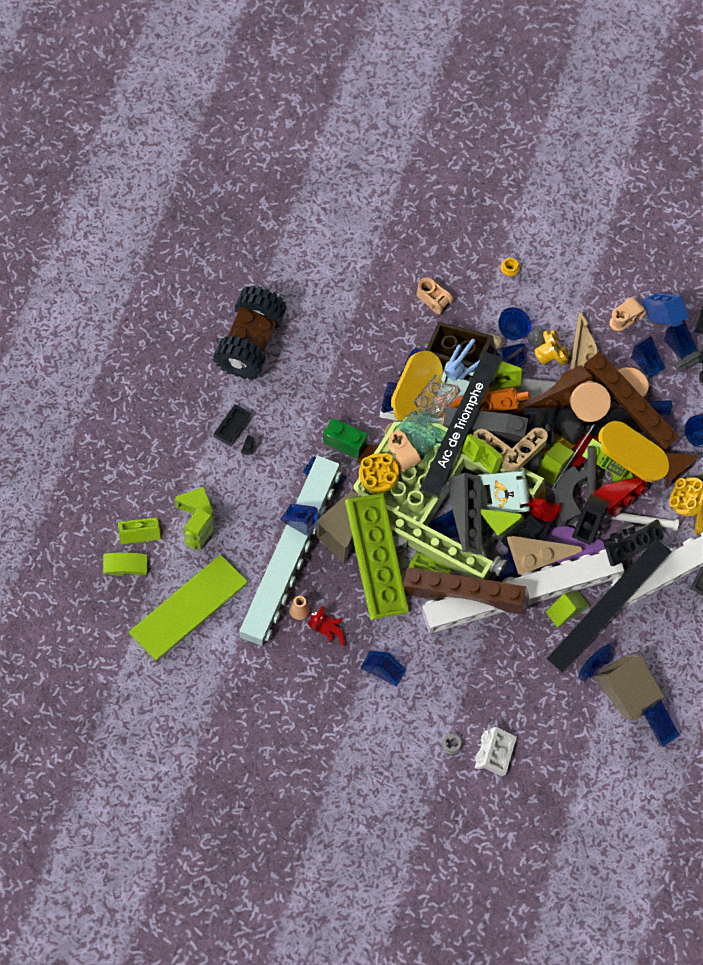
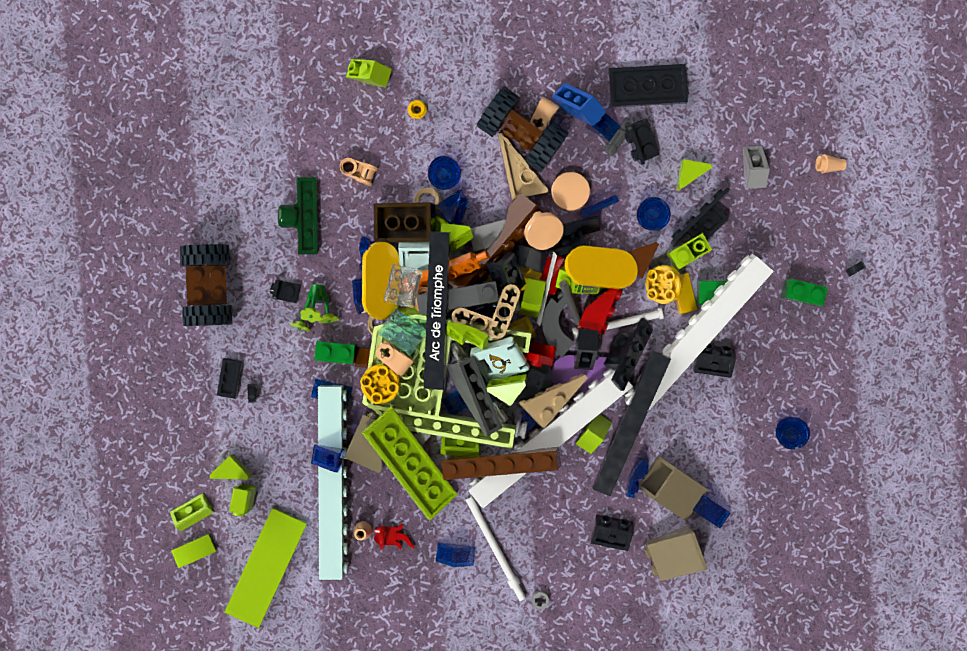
camera: 15 degrees left, 25 degrees up
(319, 370) = (285, 291): none -> black bracket
(340, 389) = (316, 295): none -> plant
(364, 313) = (302, 216): none -> dark green plate
(431, 715) = (513, 580): none -> white bar
(455, 368) = (409, 254): light blue plant -> none
(479, 220) = (369, 72): none -> lime slope
(495, 751) = (580, 593): white bracket -> none
(535, 337) = (470, 175): dark grey piece -> none
(550, 707) = (612, 532): none -> black bracket
(552, 349) = (488, 184): yellow plate -> none
(589, 296) = (502, 114): none -> black plate
(608, 747) = (675, 554): none -> dark tan slope
(647, 357) = (578, 155): clear blue slope -> none
(648, 420) = (580, 213): reddish brown arch -> none

